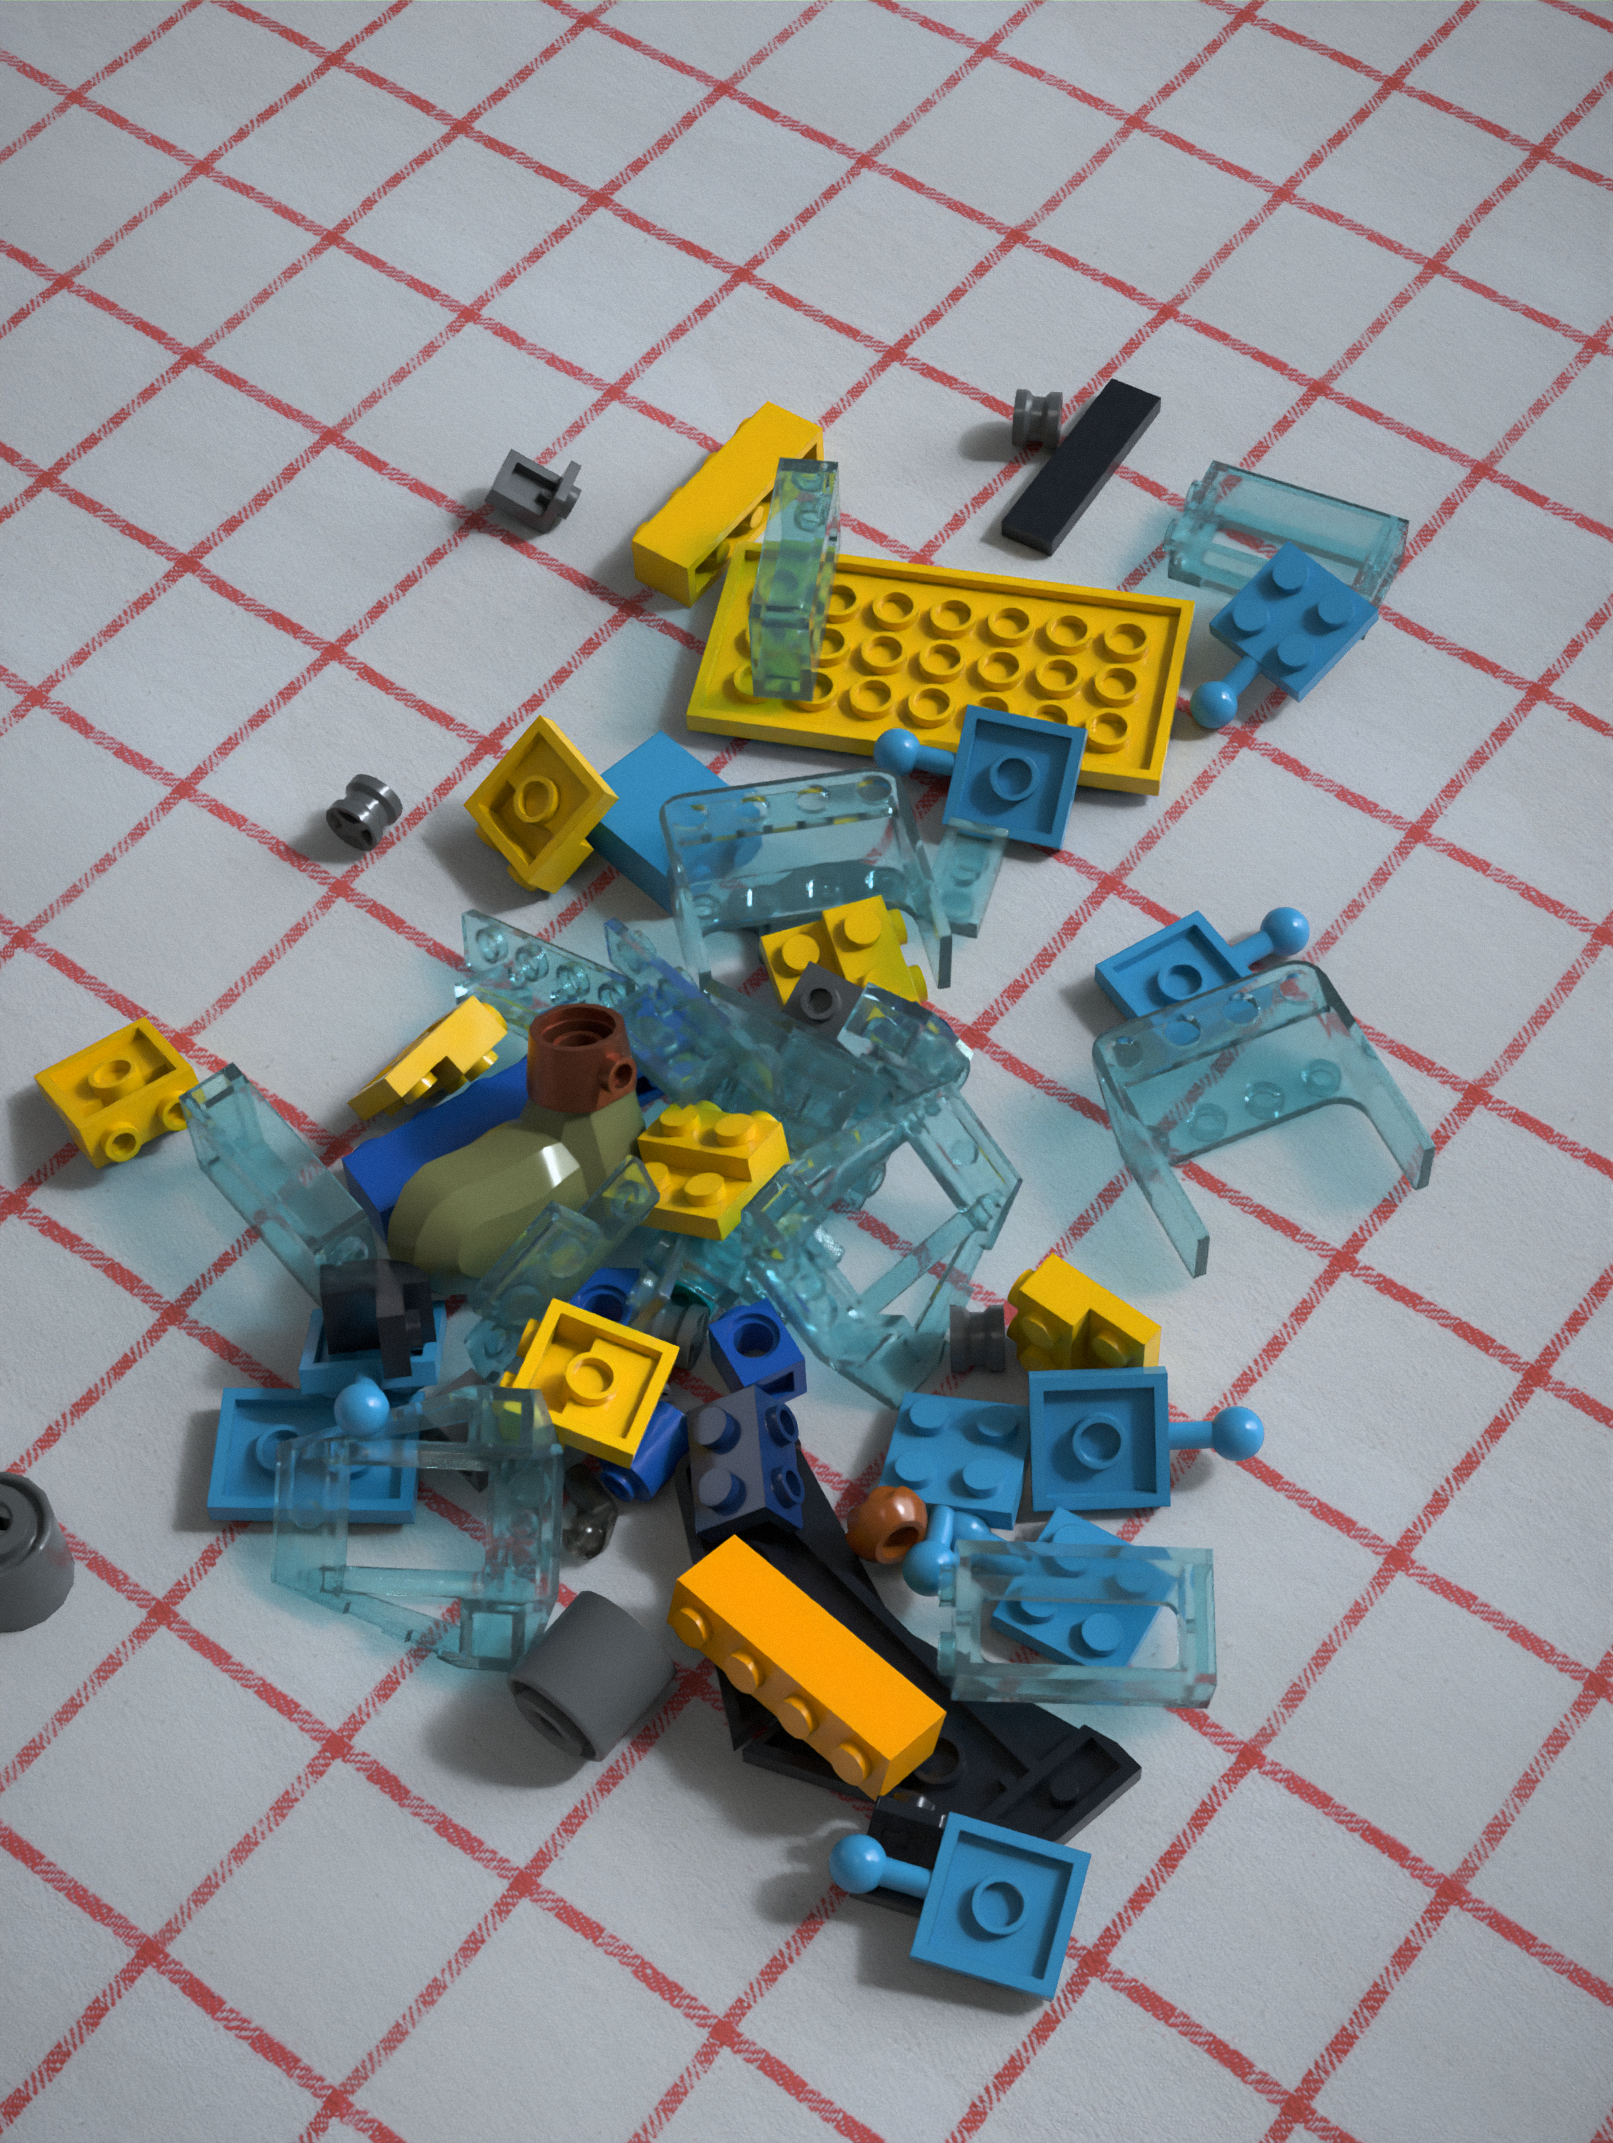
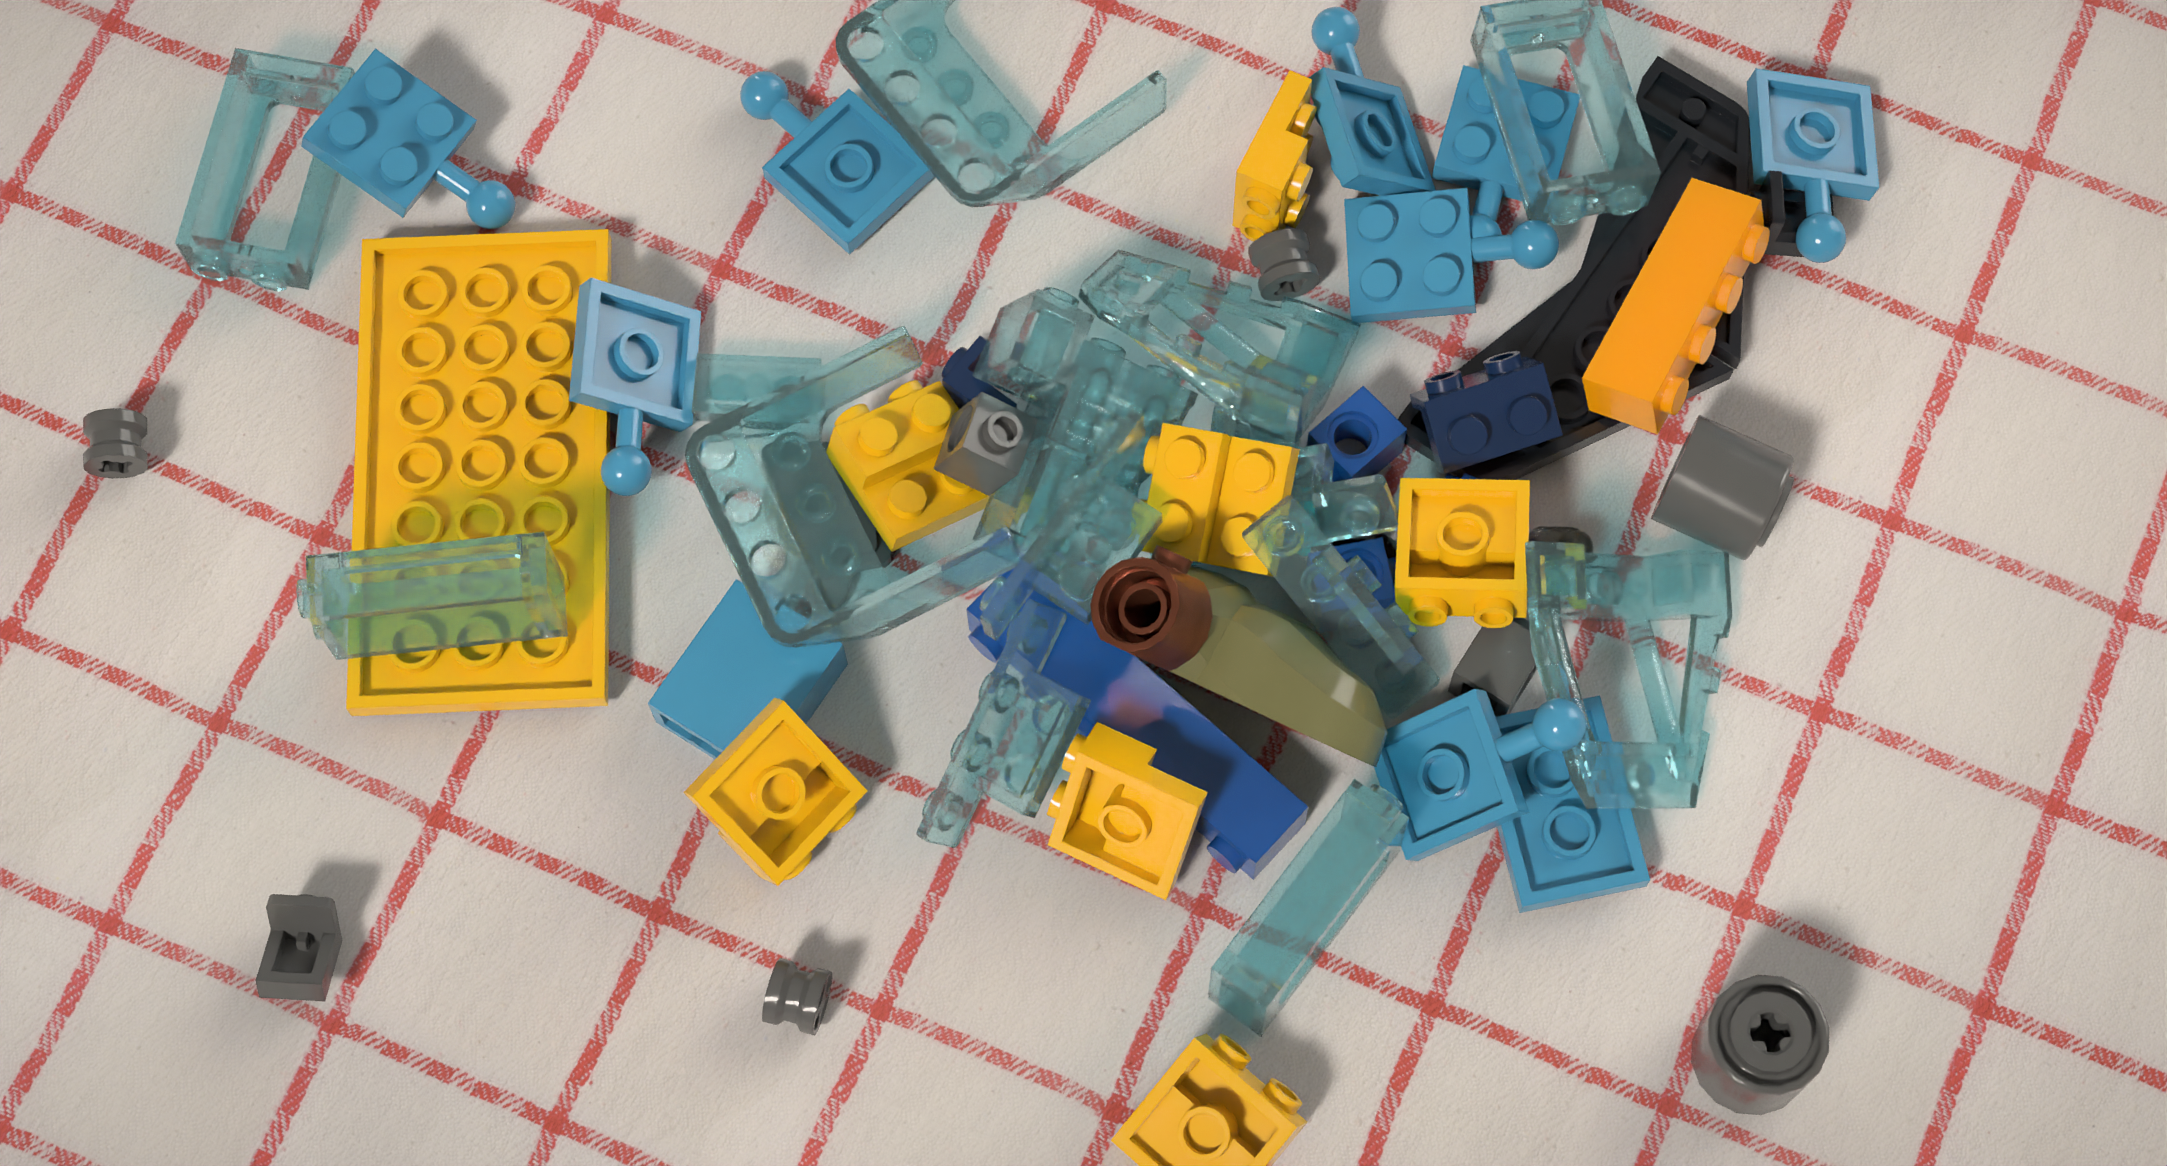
camera: 105 degrees left, 15 degrees up
(377, 1307) = (1425, 756): black brick -> none
(724, 502) = (286, 734): yellow brick -> none
(886, 1524) = (1509, 280): dark orange plate -> none
(1081, 467) = (169, 394): black tile -> none

